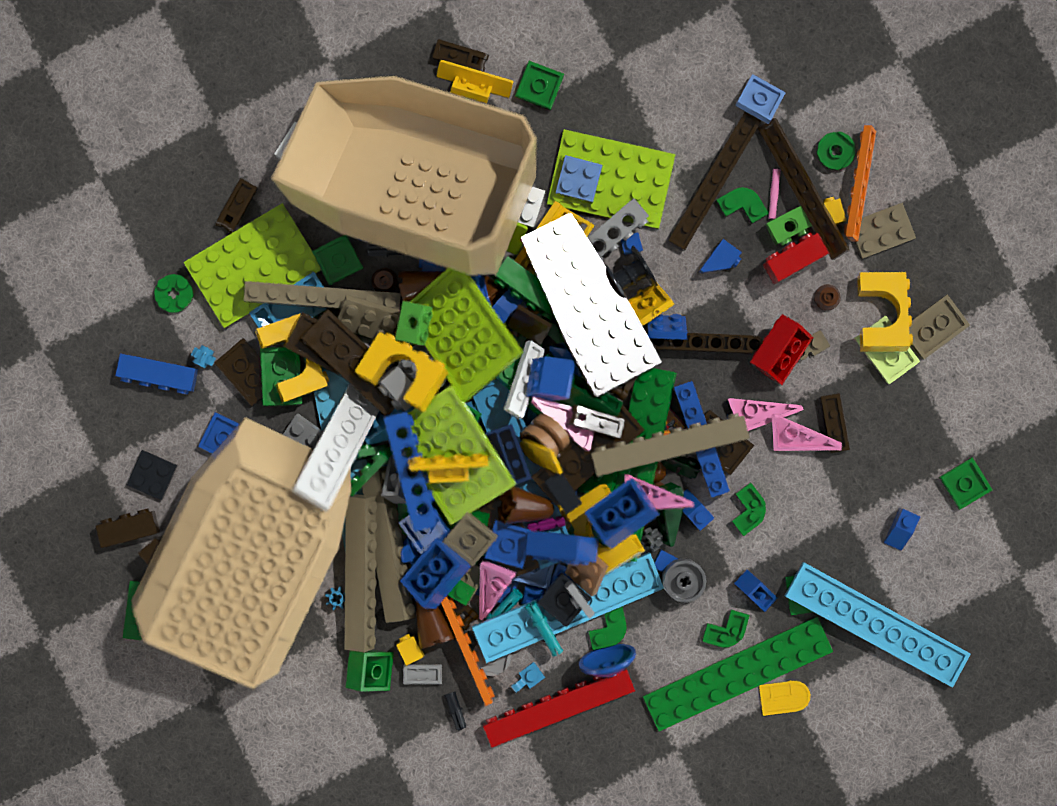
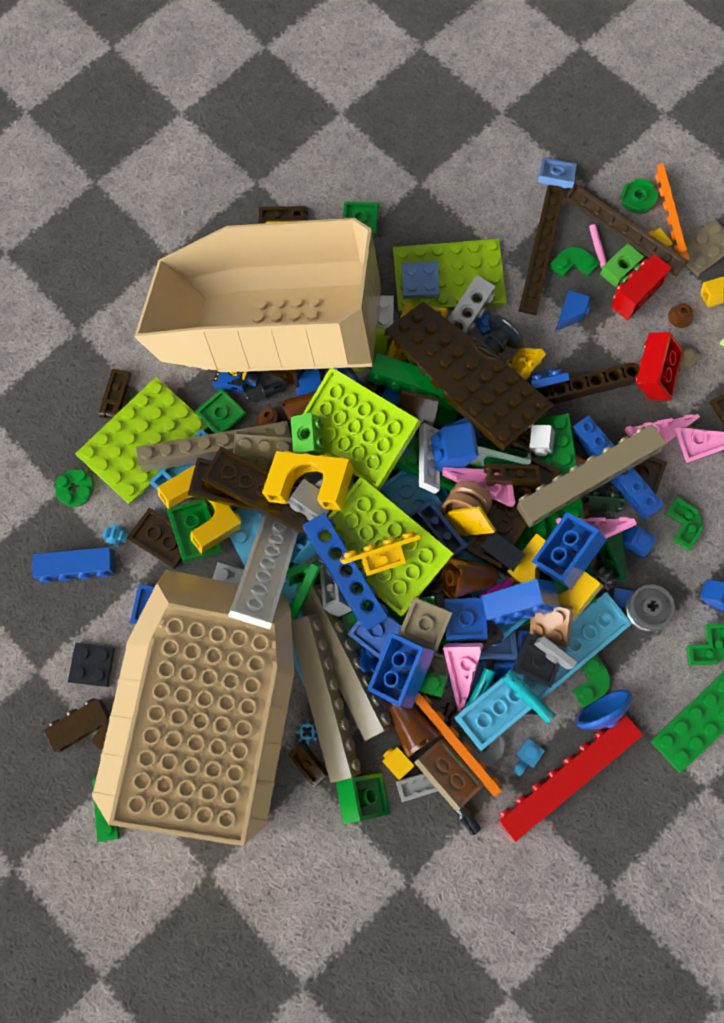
camera: 10 degrees left, 15 degrees down
(329, 626) = (308, 764): none -> dark brown plate
(451, 673) = (449, 774): none -> dark tan plate
(639, 392) = (542, 439): none -> white brick

